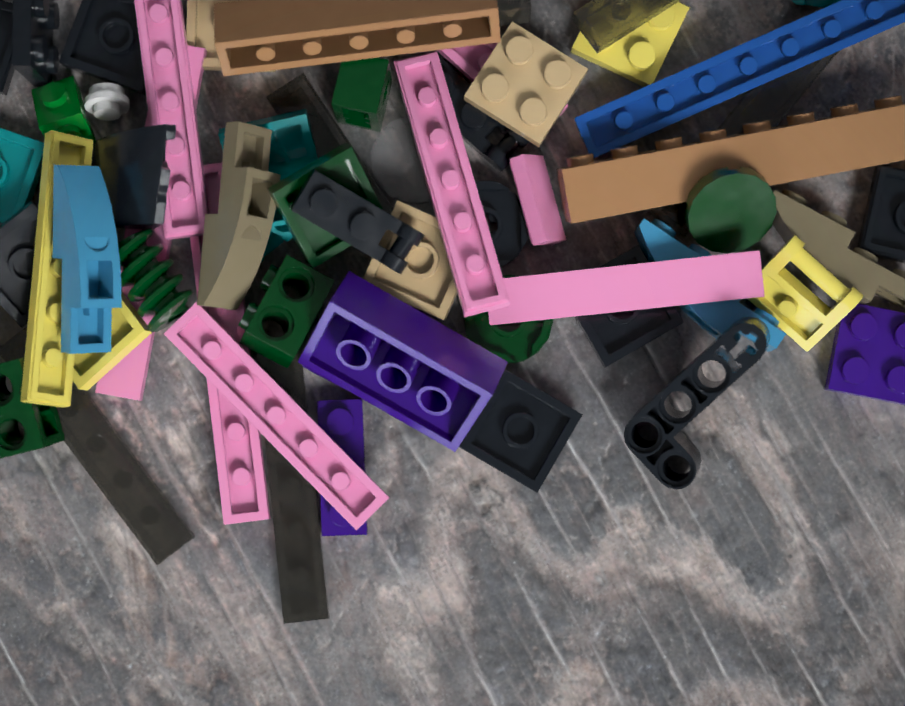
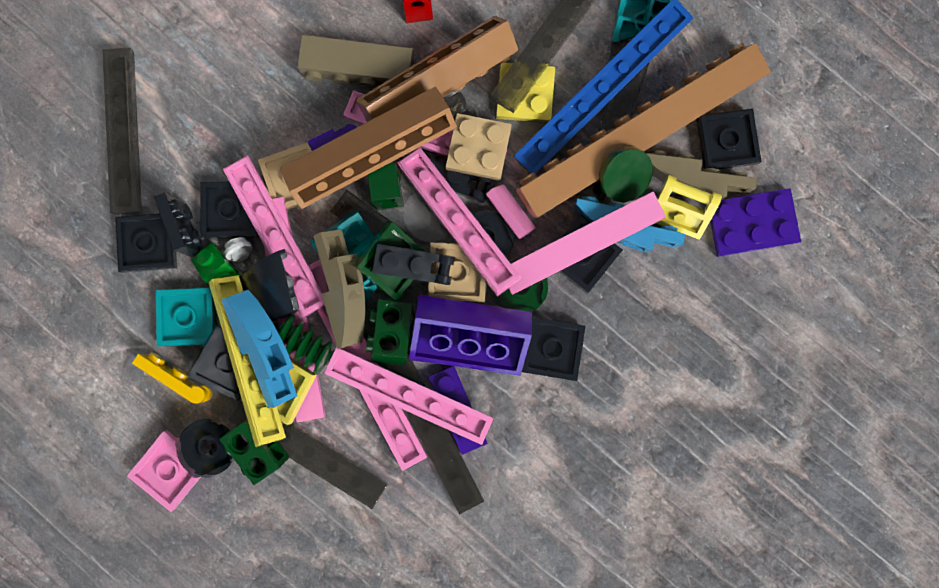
camera: 25 degrees left, 0 degrees up
(702, 393) = (651, 286): black beam -> none

